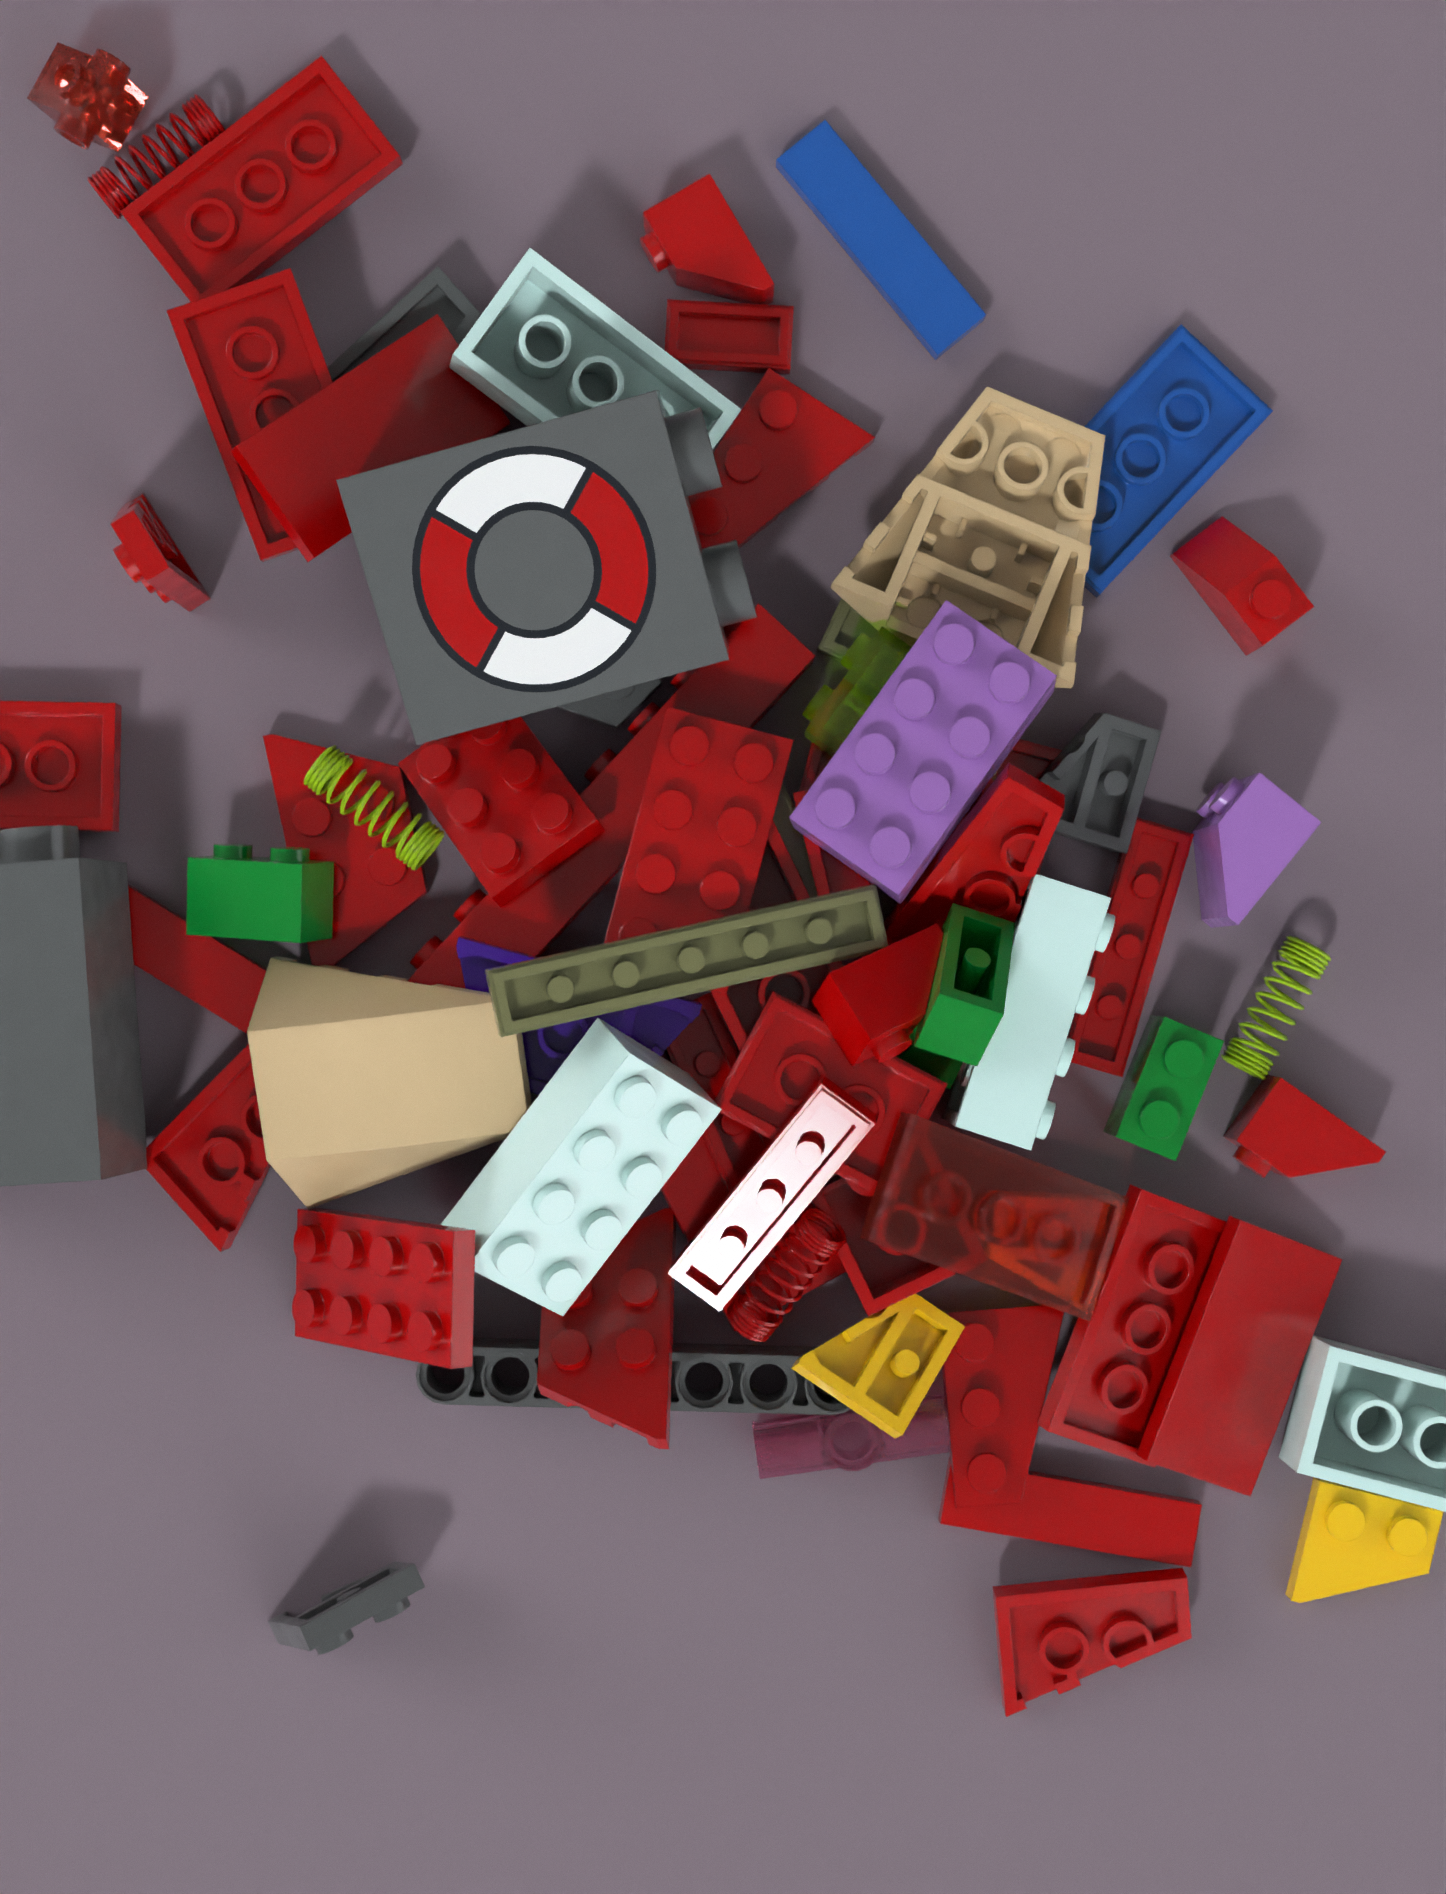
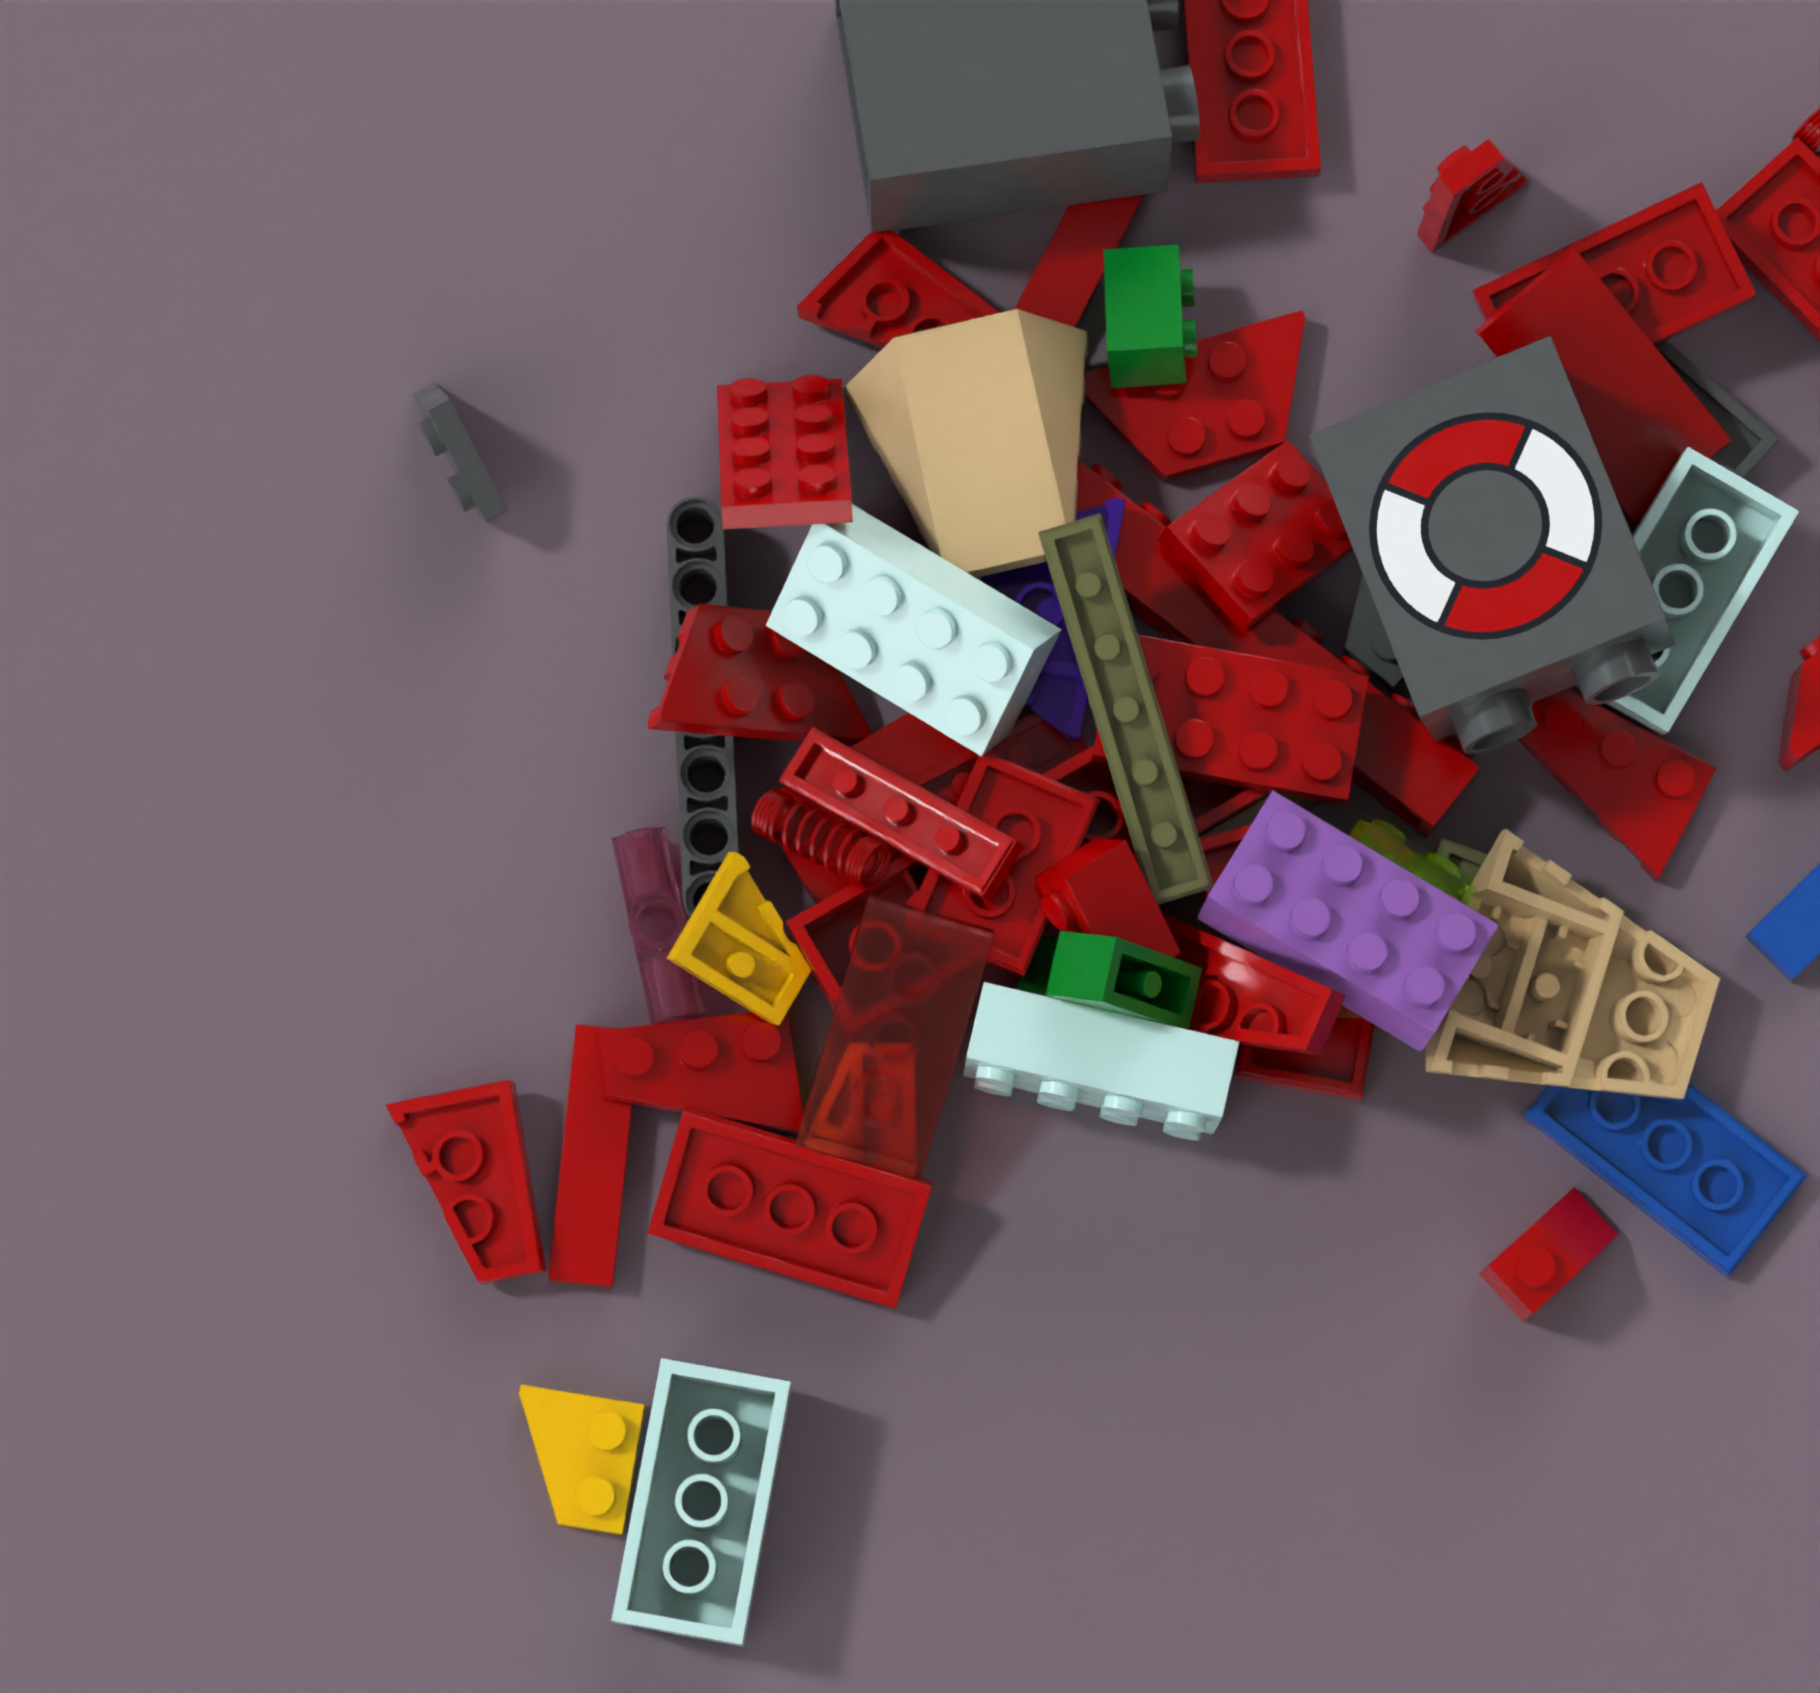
camera: 80 degrees right, 10 degrees down
(325, 775) = (1214, 463): lime piece -> none
(730, 335) = (1744, 729): red tile -> none
(1103, 780) = (1333, 1121): dark grey wing -> none
(1142, 903) = (1171, 1170): red tile -> none
(1163, 1086) = (1033, 1210): green brick -> none
(1239, 1356) = (766, 1309): red tile -> none
(1244, 845) = (1285, 1265): medium lavender slope -> none
(1295, 1135) = (995, 1349): red slope -> none
(1305, 959) = (1174, 1354): lime piece -> none

